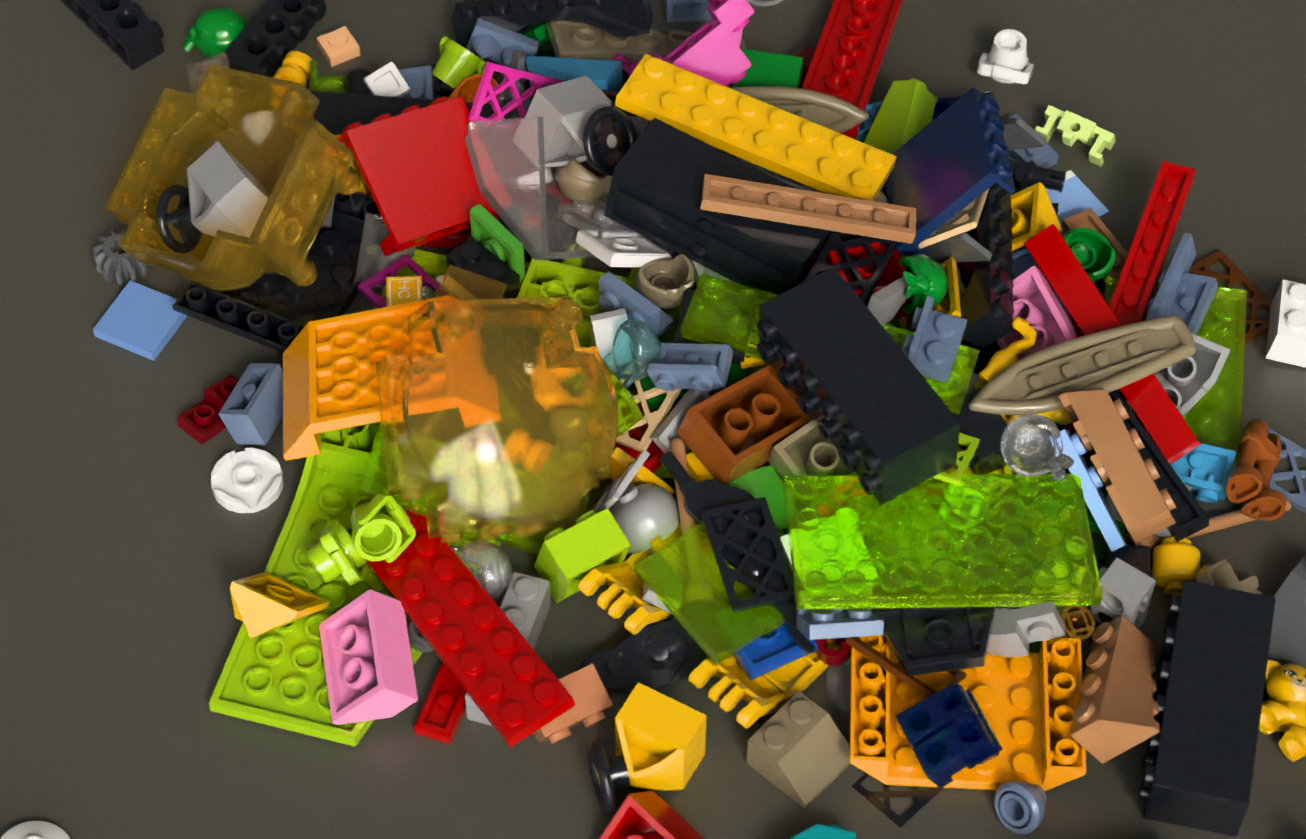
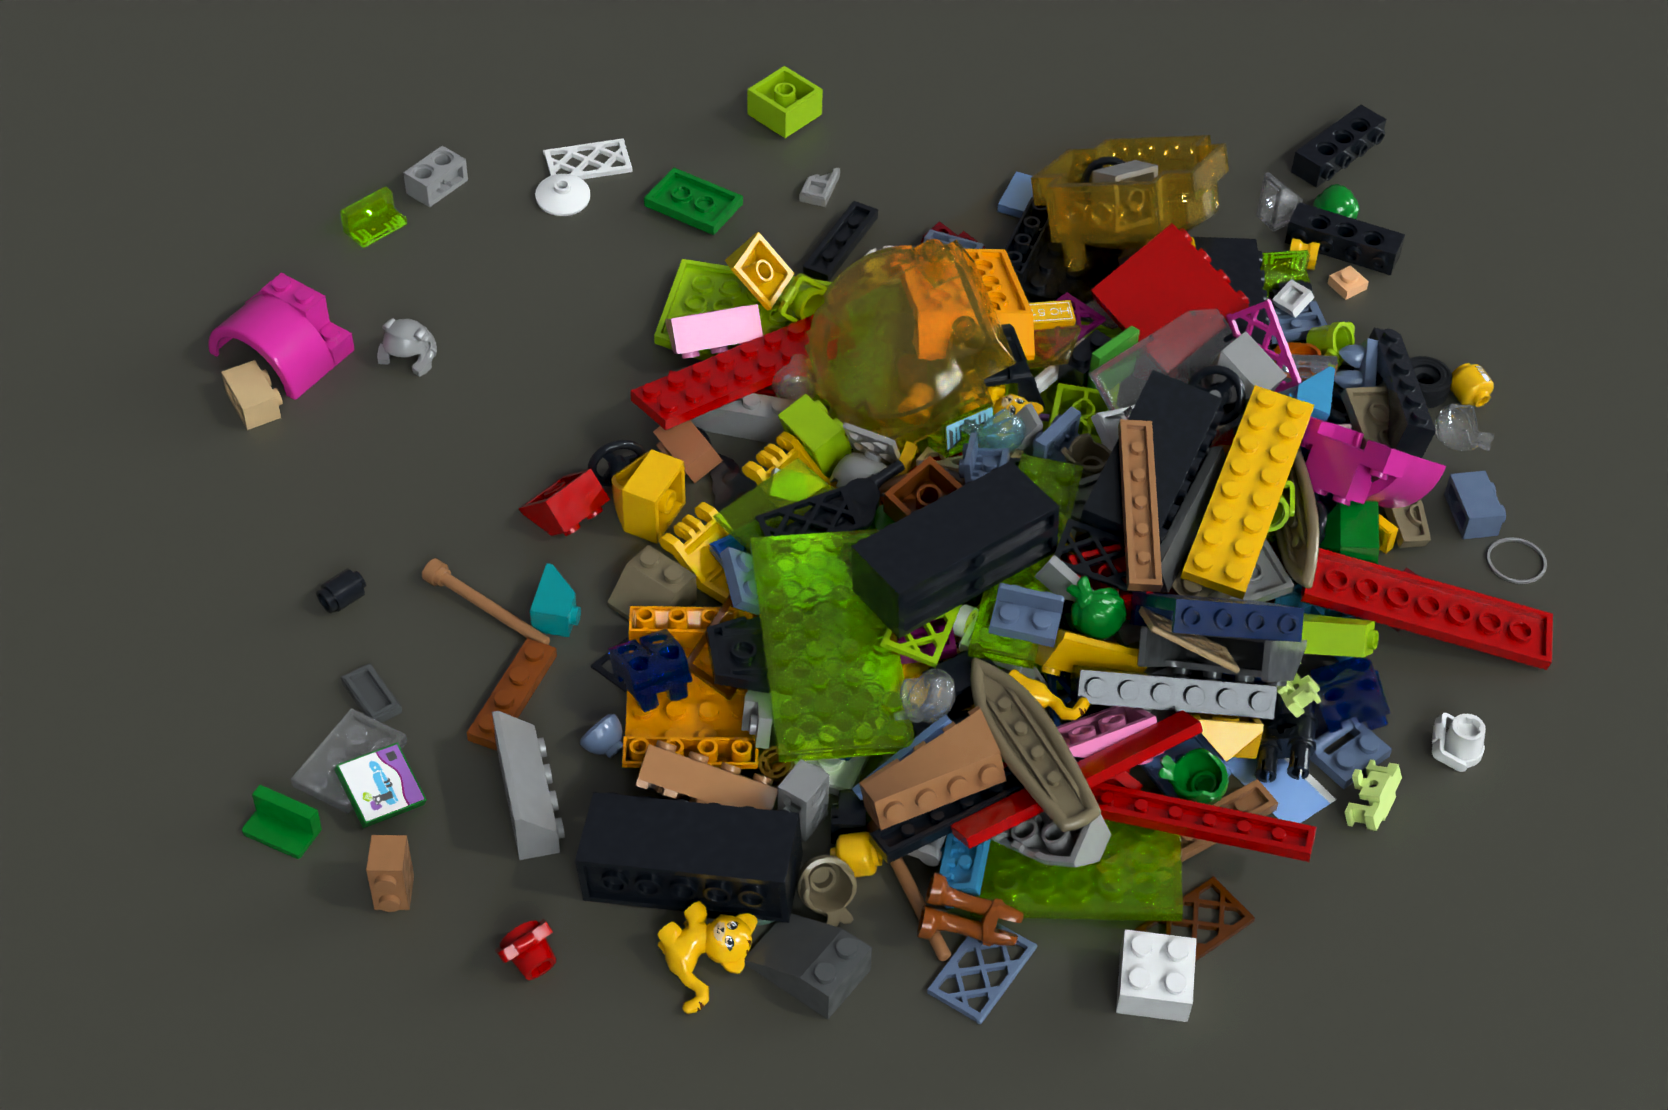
camera: 85 degrees right, 5 degrees down
(77, 546) = (819, 188): none -> light grey tile
(85, 690) = (693, 201): none -> green plate
(196, 525) = (840, 241): none -> black plate
(378, 534) = (805, 301): lime piece -> none
(1183, 292) = (1156, 844): sand blue bracket -> none

